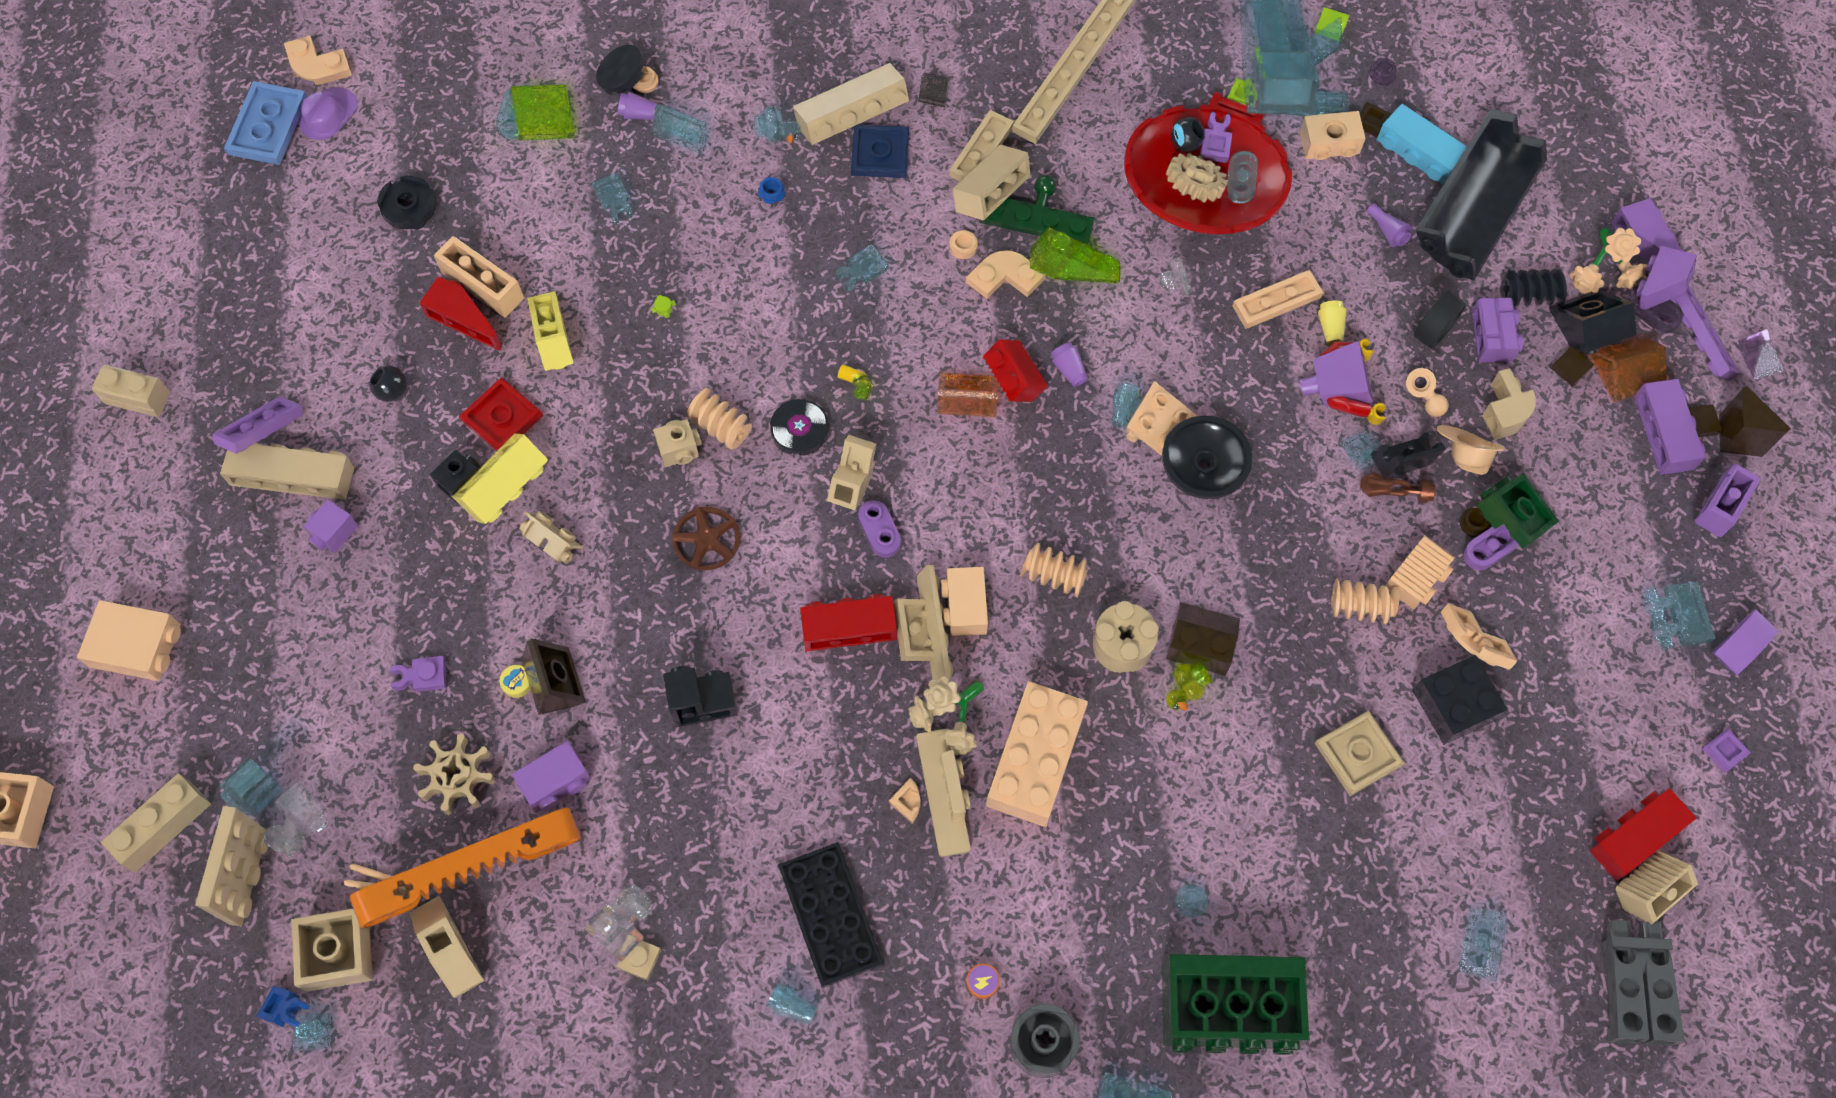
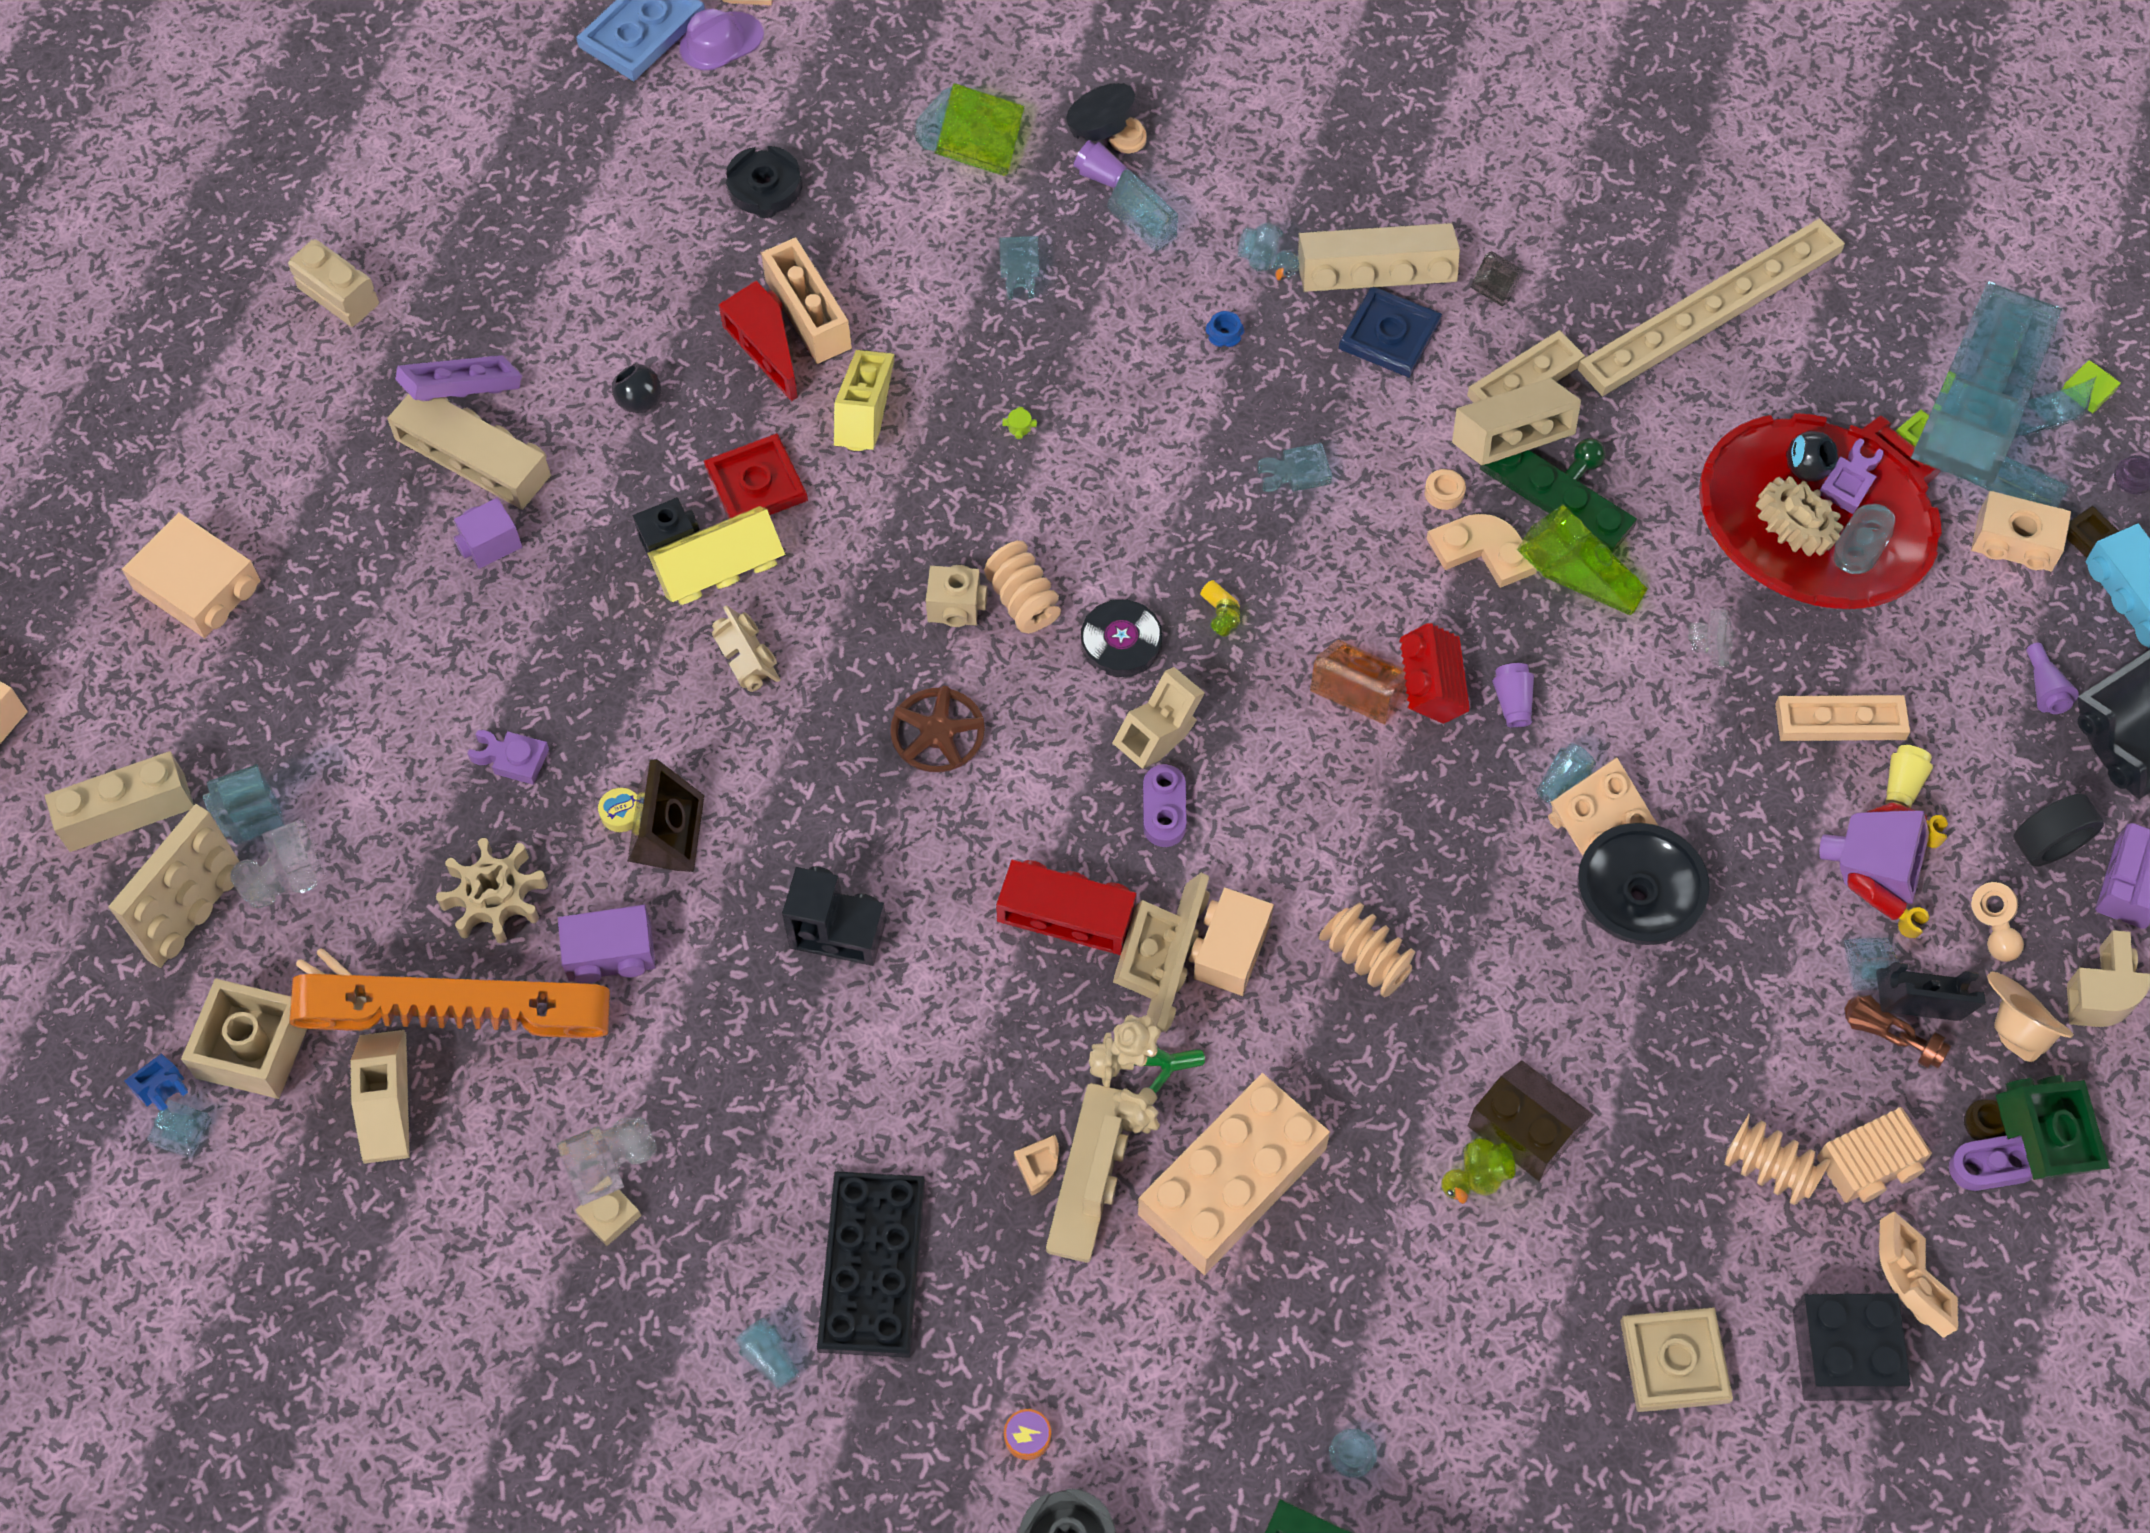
camera: 25 degrees right, 5 degrees down
(1122, 621) = (1430, 1051): tan brick -> none

